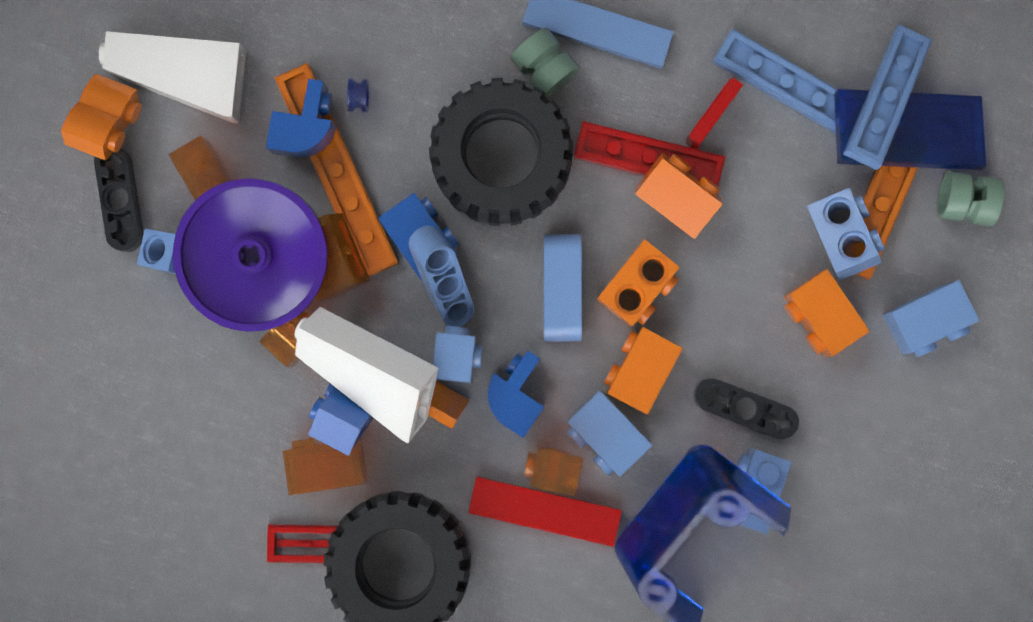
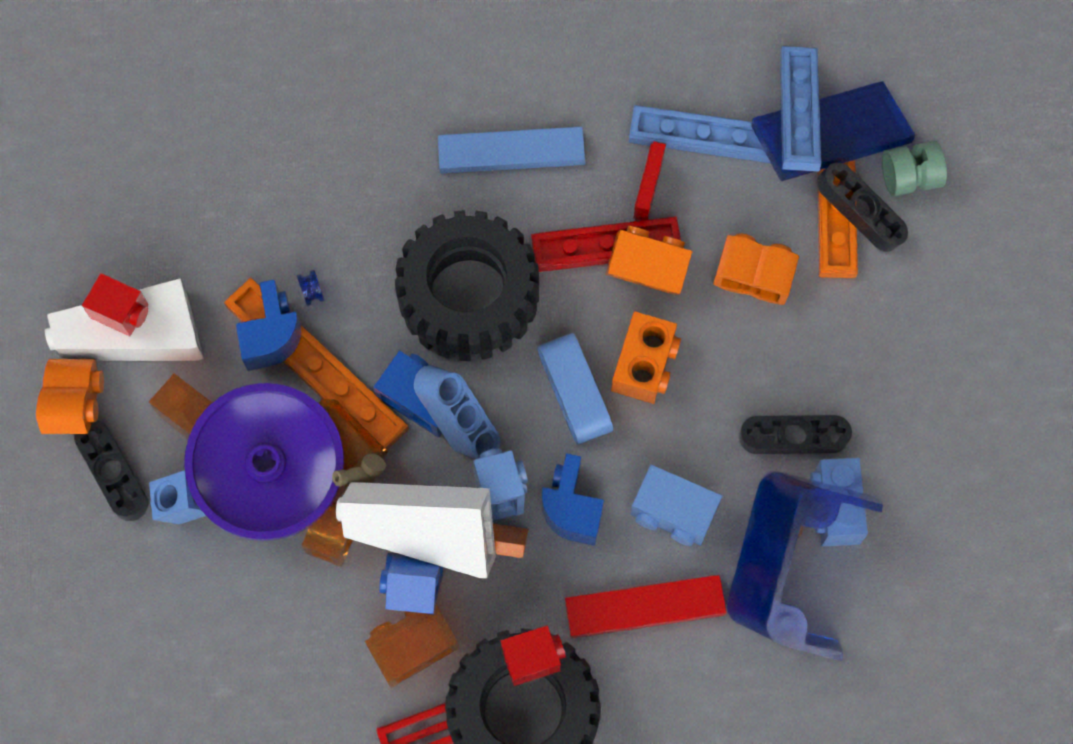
camera: 30 degrees left, 15 degrees down
(168, 50) = (116, 305): none -> red brick
(345, 297) = (371, 466): none -> dark tan piece
(418, 534) = (532, 655): none -> red brick
(544, 62) = (472, 192): sand green wheel -> none
(554, 470) = (638, 554): clear orange brick -> none
(642, 369) = (683, 433): orange brick -> none
(778, 238) = (756, 269): none -> orange brick
(825, 314) = (830, 318): orange brick -> none
(839, 236) = (813, 241): medium blue brick -> none
(918, 224) = (846, 206): none -> black beam
(930, 318) = (928, 285): medium blue brick -> none

